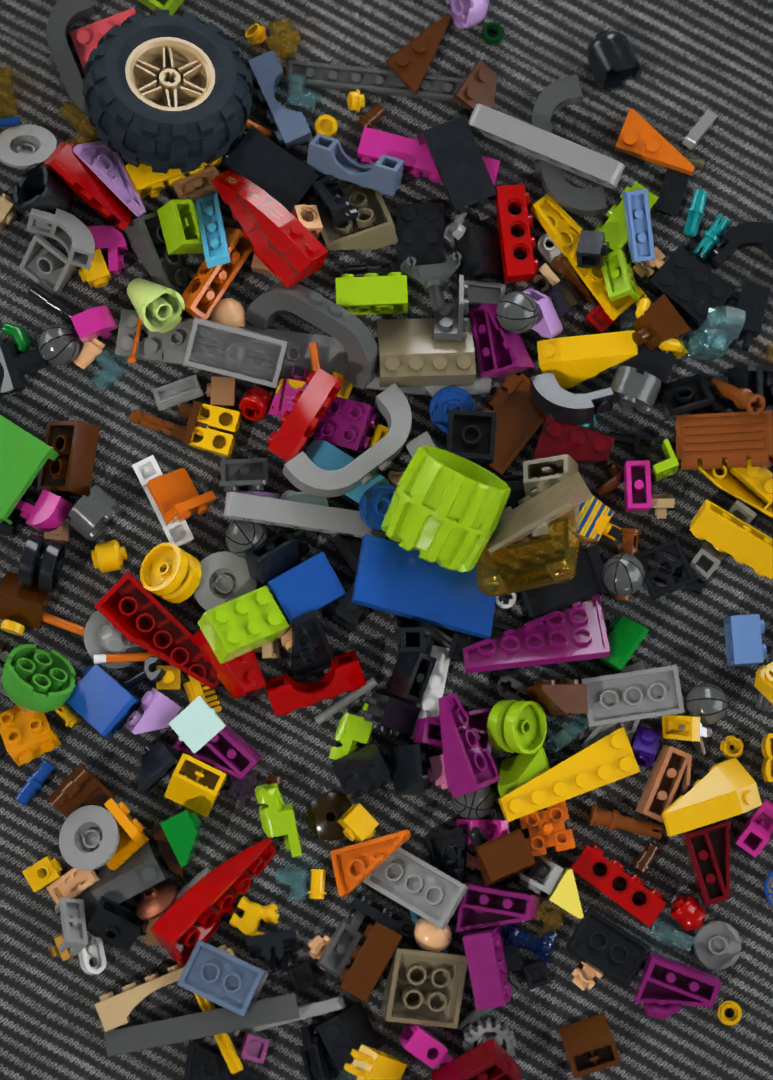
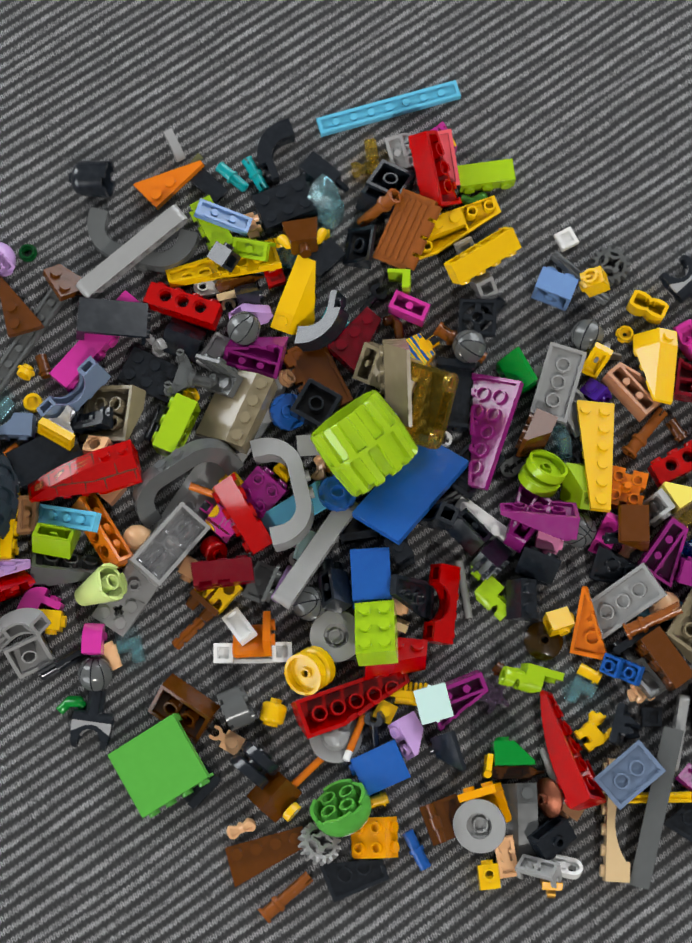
camera: 65 degrees left, 5 degrees down
(47, 513) = (219, 742): dark pink brick -> none
(132, 359) = (133, 624): orange hinge -> none
(151, 820) = (487, 768): none -> yellow piece
(177, 392) = (175, 603): light grey tile -> none
(185, 473) = (239, 626): none -> white tile
(195, 784) = (475, 728): yellow slope -> none
(230, 425) = (222, 572): none -> dark red wedge
(305, 169) = (59, 428): none -> yellow piece
(337, 917) = (622, 669): none -> blue slope
(397, 918) = (642, 624): none -> dark orange pin
(416, 294) = (191, 393): none -> yellow plate
(488, 388) = (286, 378): none -> medium nougat plate
(635, 389) = (339, 276): dark grey brick -> none
(661, 503) = (428, 297): tan tile -> none

